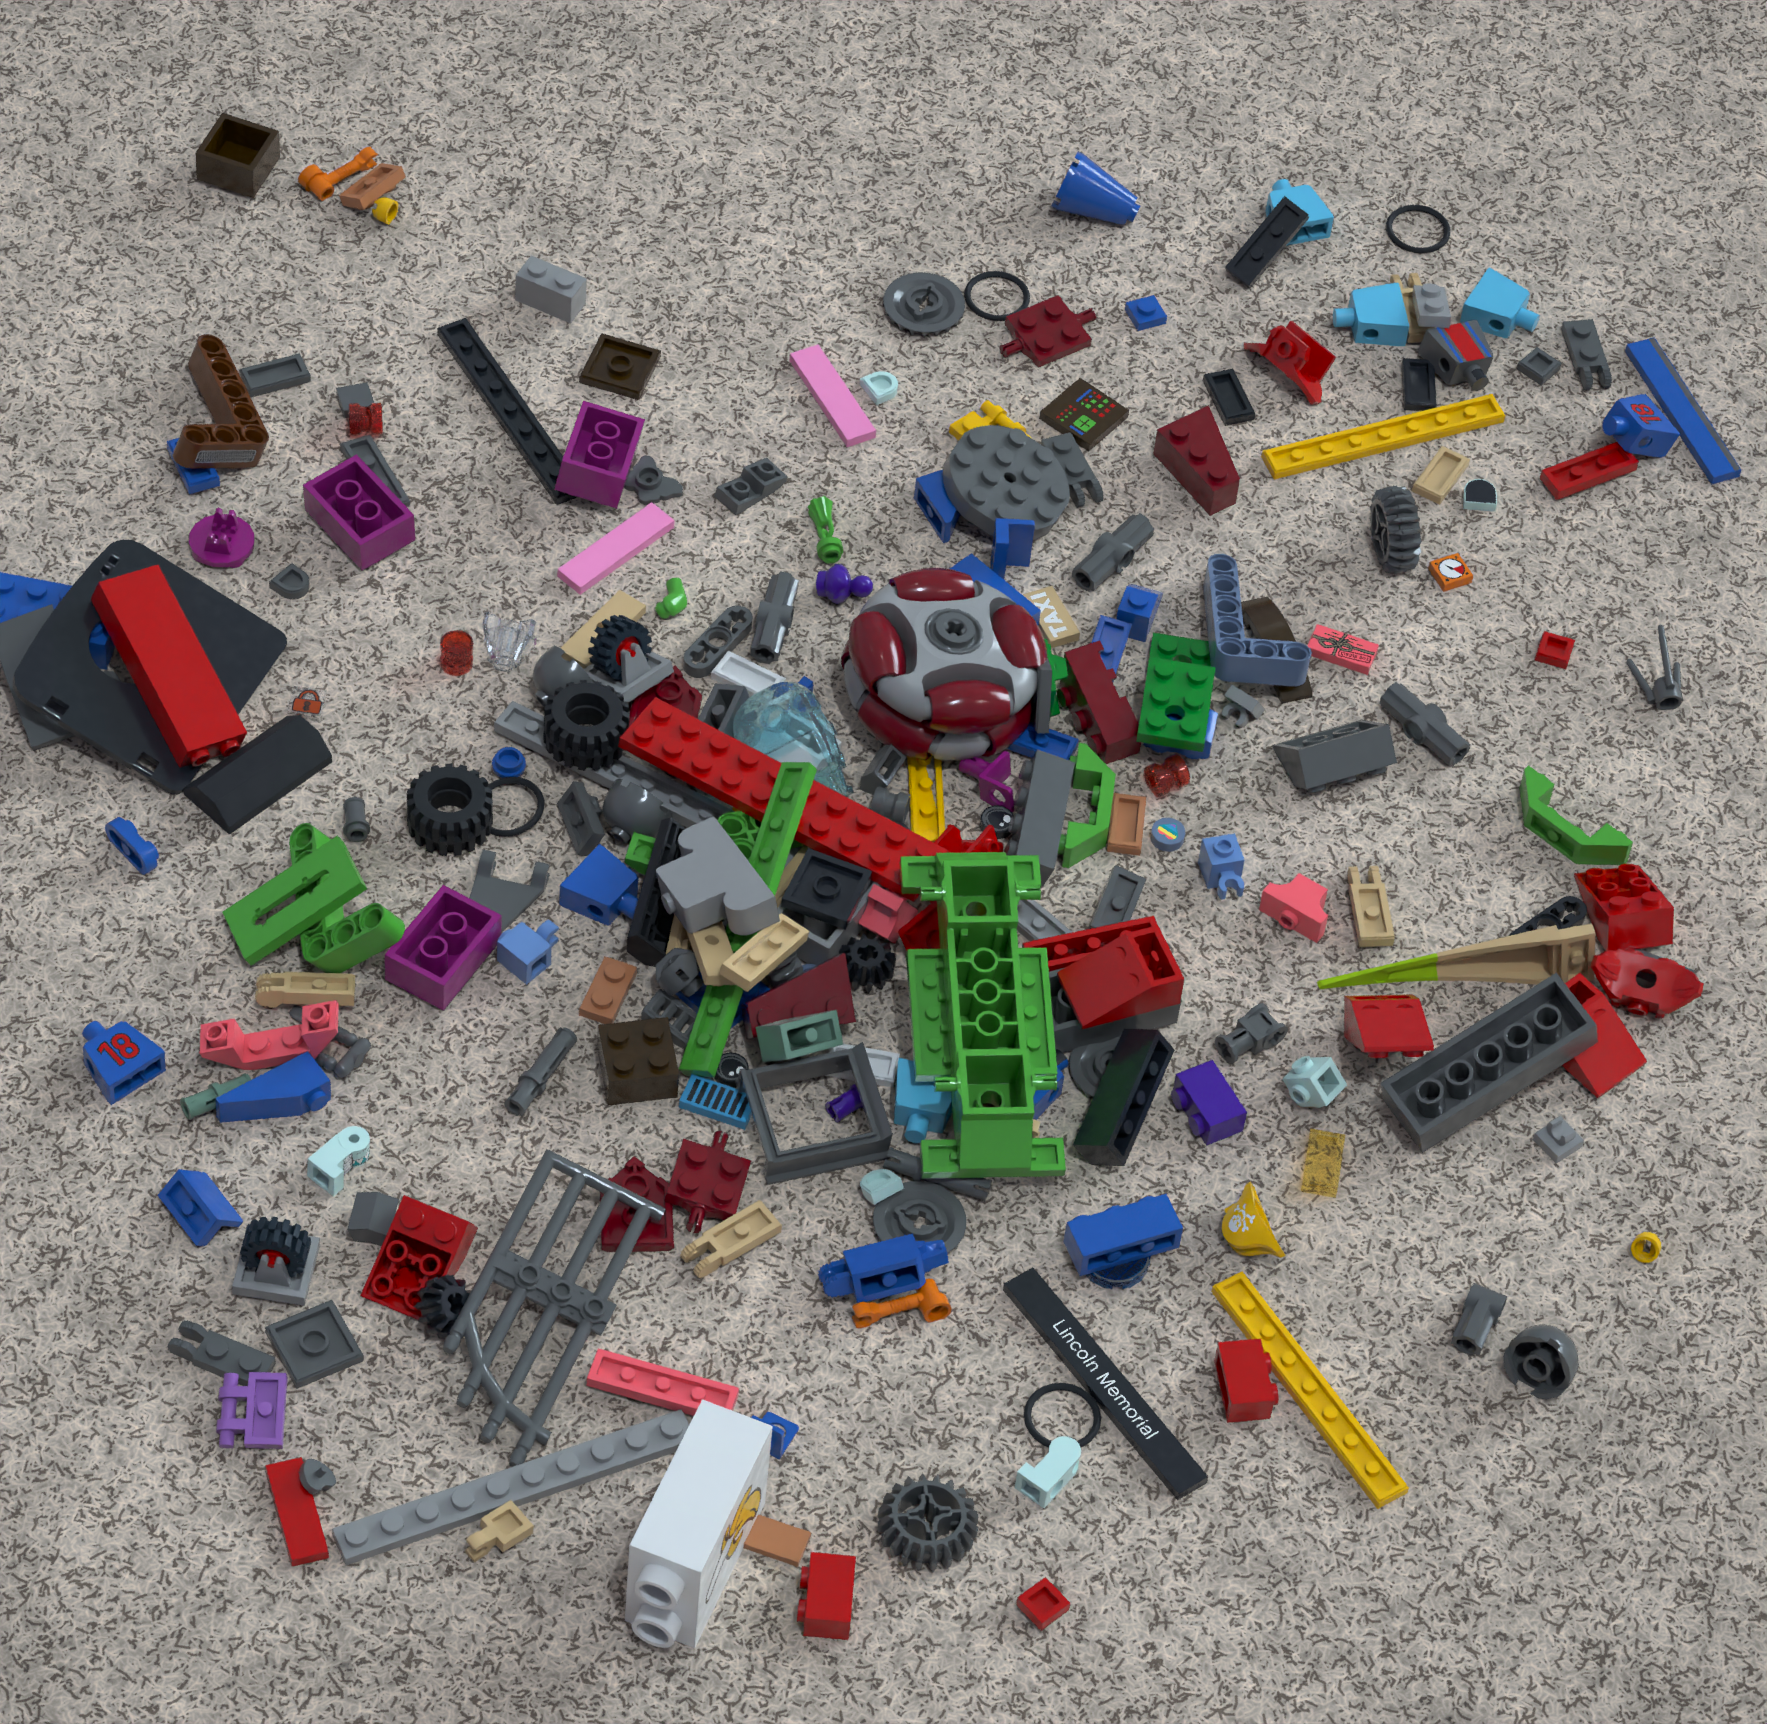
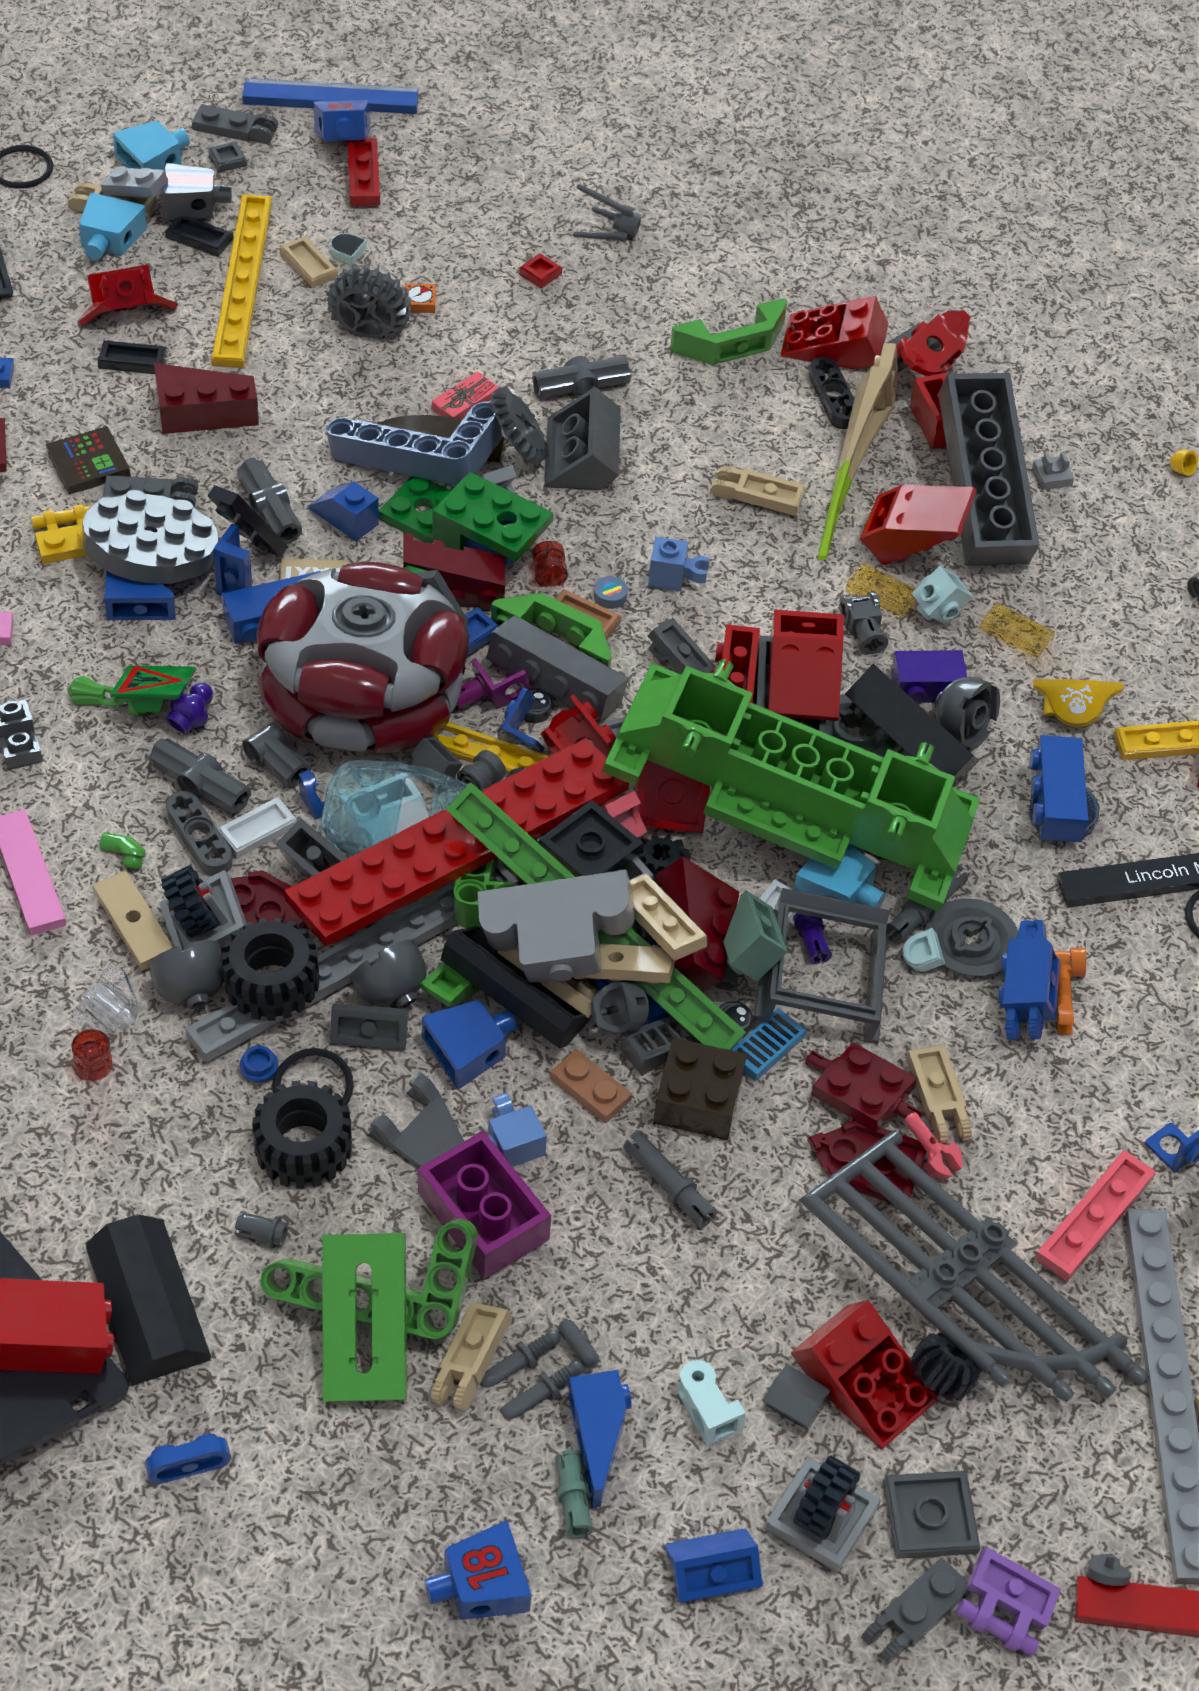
camera: 65 degrees left, 0 degrees up
(228, 1045) = (537, 1403): coral slope -> none
(307, 703) = (76, 1220): tile -> none
(667, 1246) = (935, 1150): none -> coral bar
(825, 661) = (272, 749): none -> dark grey piece
(845, 546) = (150, 685): none -> green piece
(964, 807) = (514, 716): none -> blue bracket
(1052, 535) = (251, 525): none -> black plate
(1114, 637) = (375, 543): blue plate -> none
(1174, 1138) = (966, 709): none -> dark grey cylinder
(1293, 684) = (519, 425): none -> dark grey gear
(1297, 906) = (742, 533): coral brick -> none
(1306, 1036) = (892, 593): none -> clear yellow tile

